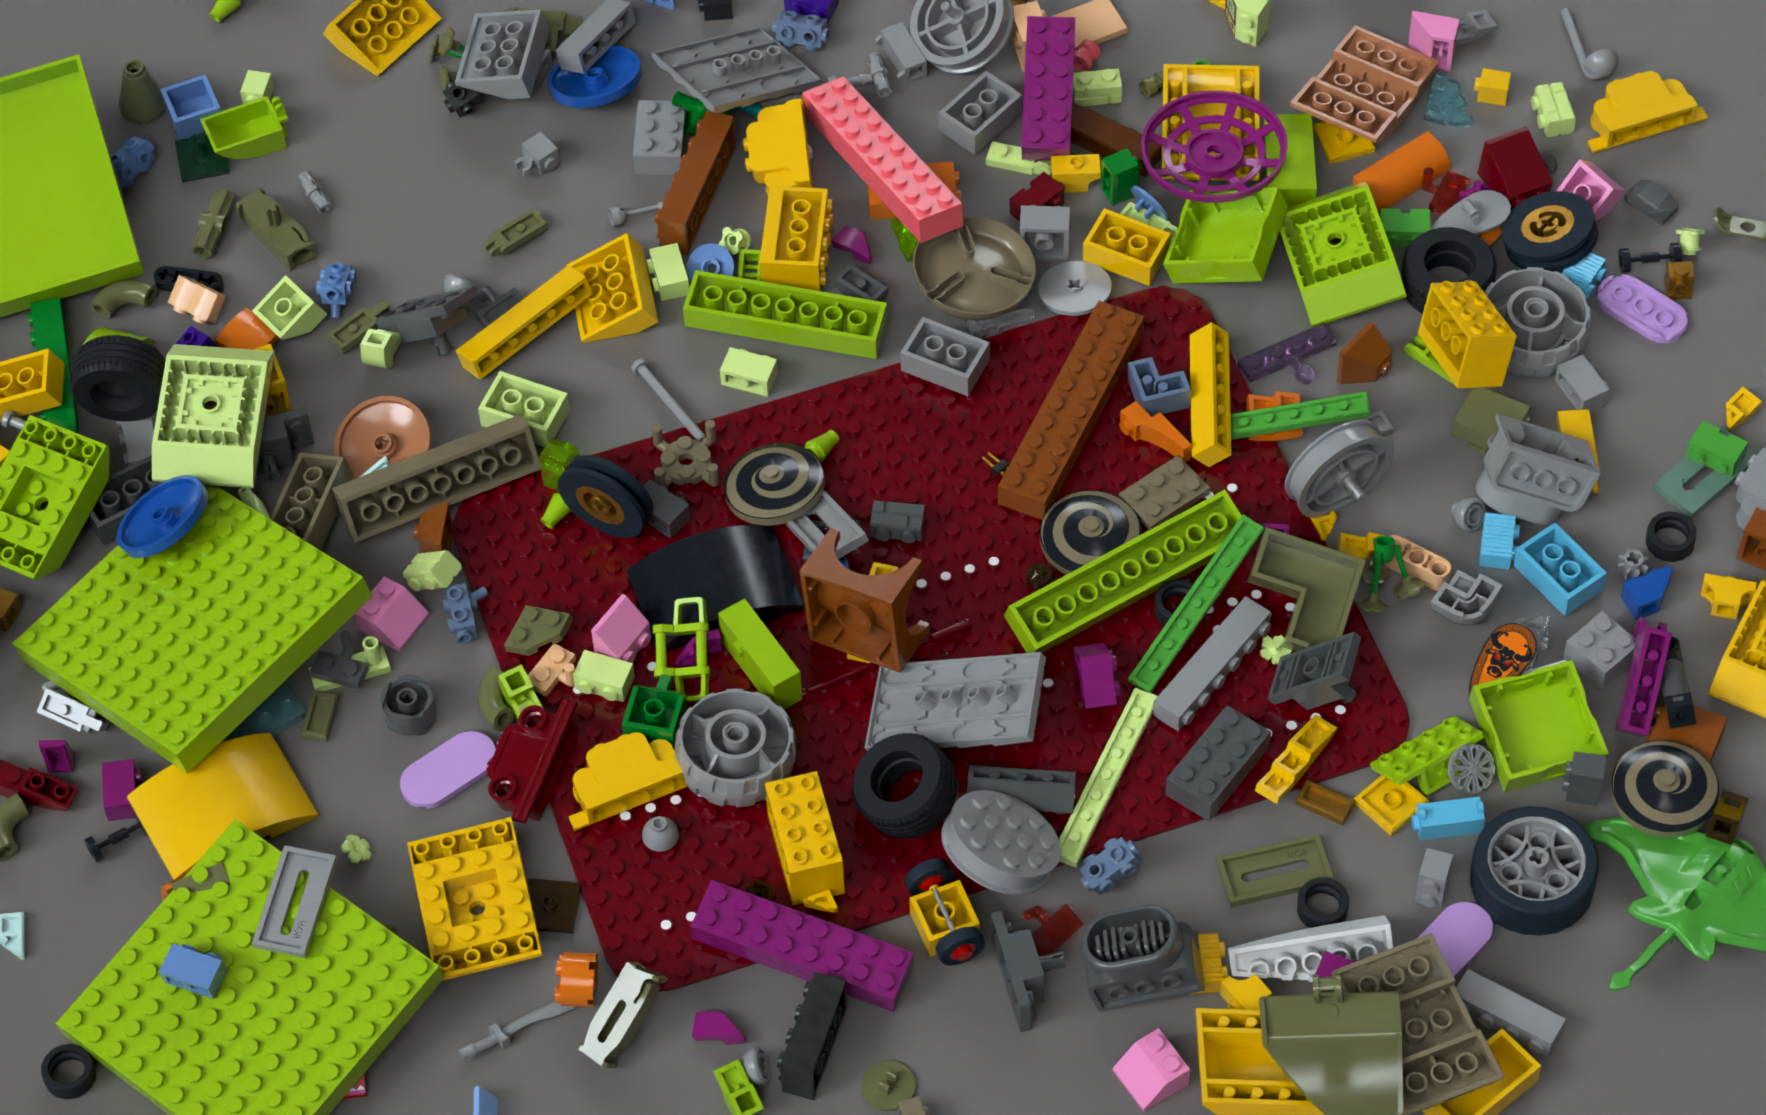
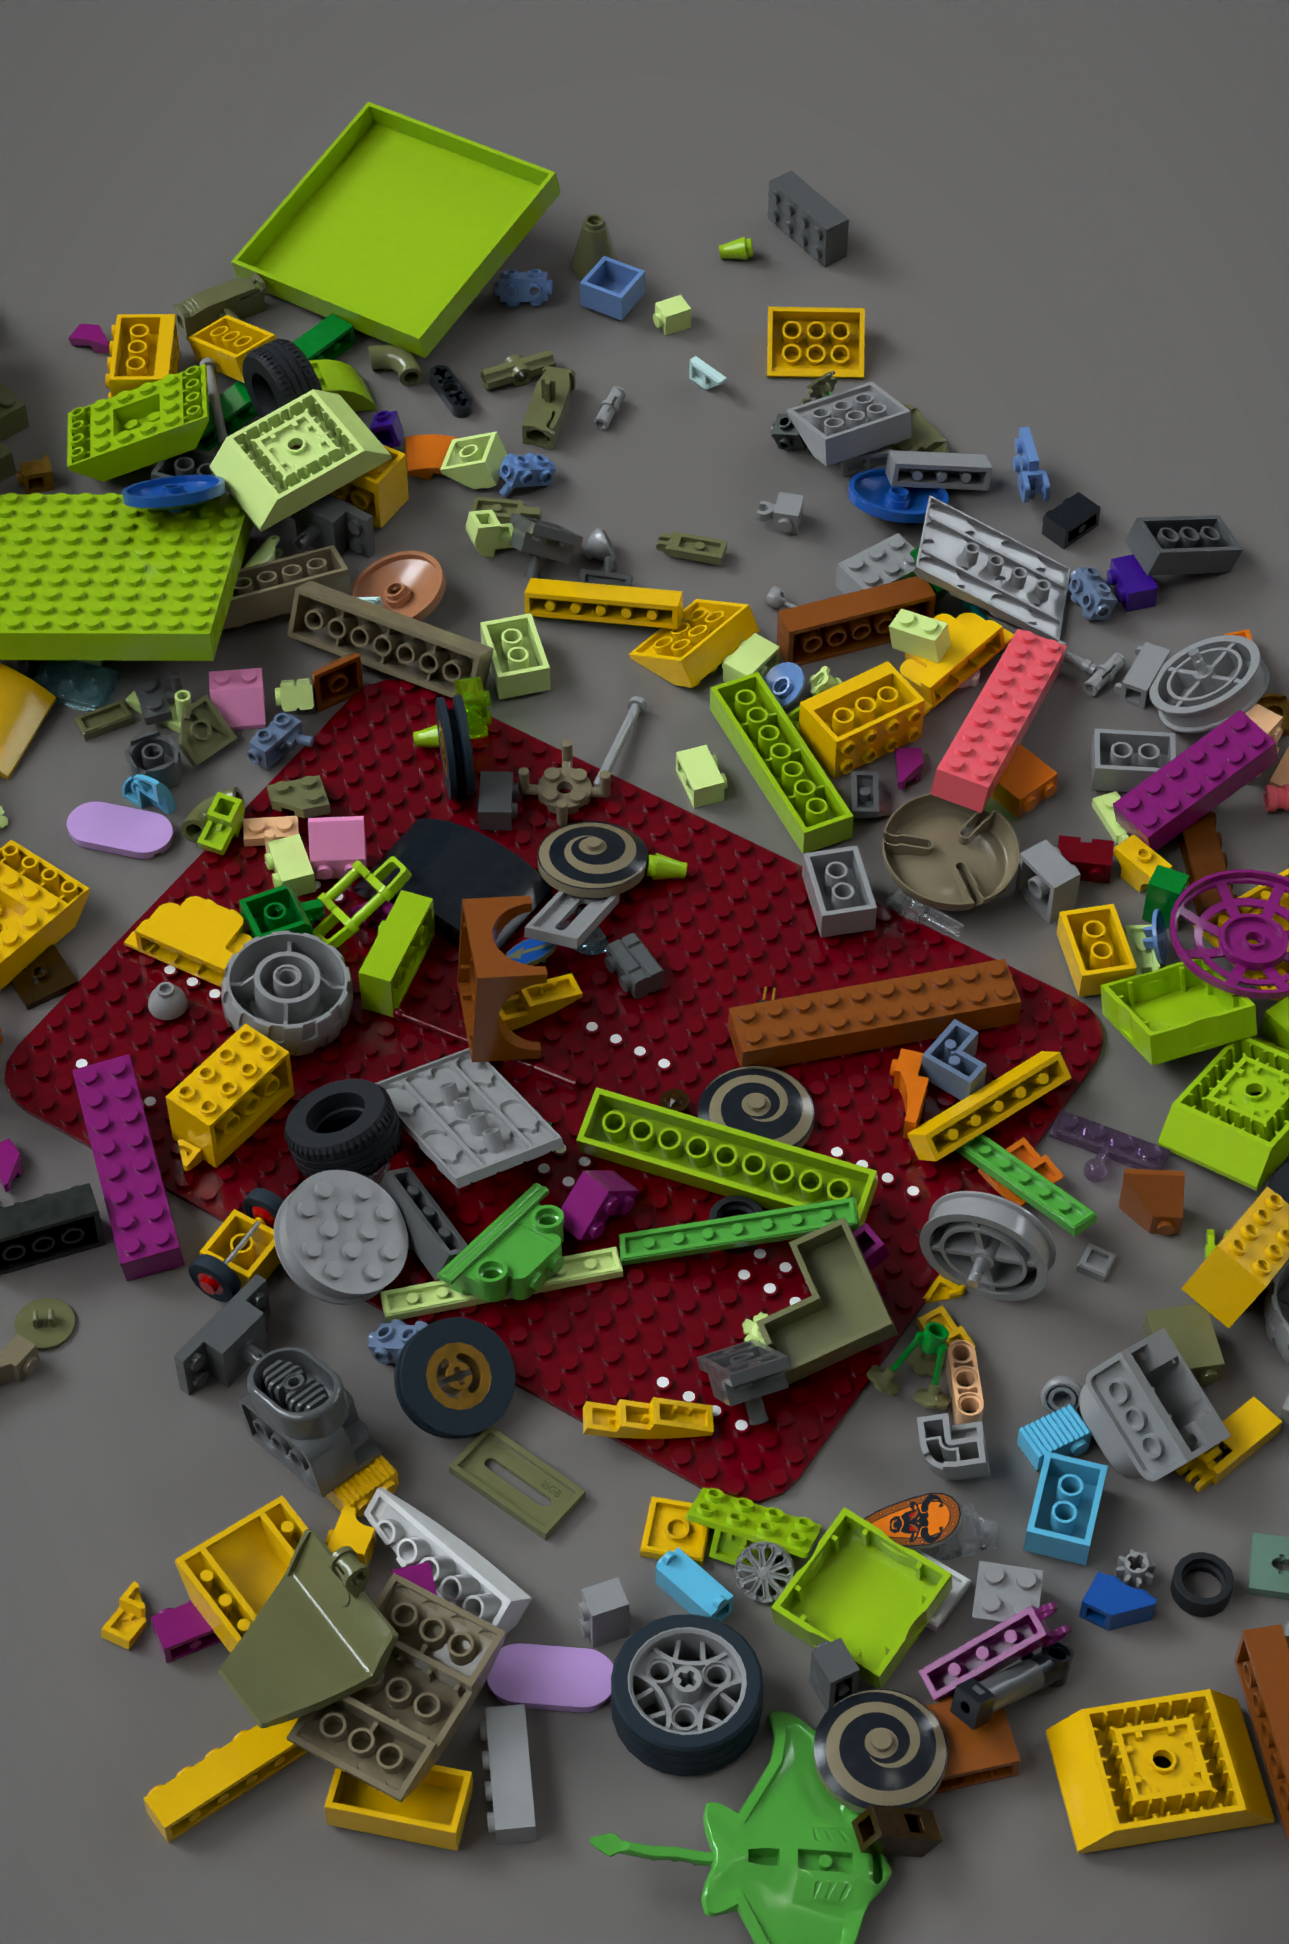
camera: 50 degrees right, 5 degrees down
(196, 299) = (431, 402): light nougat brick -> none
(198, 159) = (578, 326): clear green tile -> none
(248, 129) = (624, 331): lime piece -> none
(345, 111) = (704, 374): none -> light aqua tile
(405, 652) = (203, 731): none -> olive plate
(436, 724) = (145, 790): none -> medium azure brick
(531, 760) = (162, 872): dark red brick -> none
(760, 889) = (156, 1105): dark brown tile -> none
(763, 151) = (919, 635): none -> yellowish green brick
(1054, 929) = (317, 1343): clear red plate -> none
(1074, 288) = (1037, 949): light grey piece -> none
(1097, 87) = (1251, 825): yellowish green brick -> none
(1097, 746) = (512, 1253): none -> bright green brick
(1152, 1070) = (211, 1508): bright pink slope -> none
(1165, 492) = (855, 1139): dark tan plate -> none
(1173, 849) = (467, 1411): none -> black wheel
(1212, 664) = (693, 1288): light grey brick -> none
(1218, 763) = (584, 1358): dark grey brick -> none
(1322, 886) = (508, 1520): black tyre -> none
(1325, 802) = (628, 1477): pearl gold tile -> none
(1727, 594) = (1176, 1671): yellow brick -> none

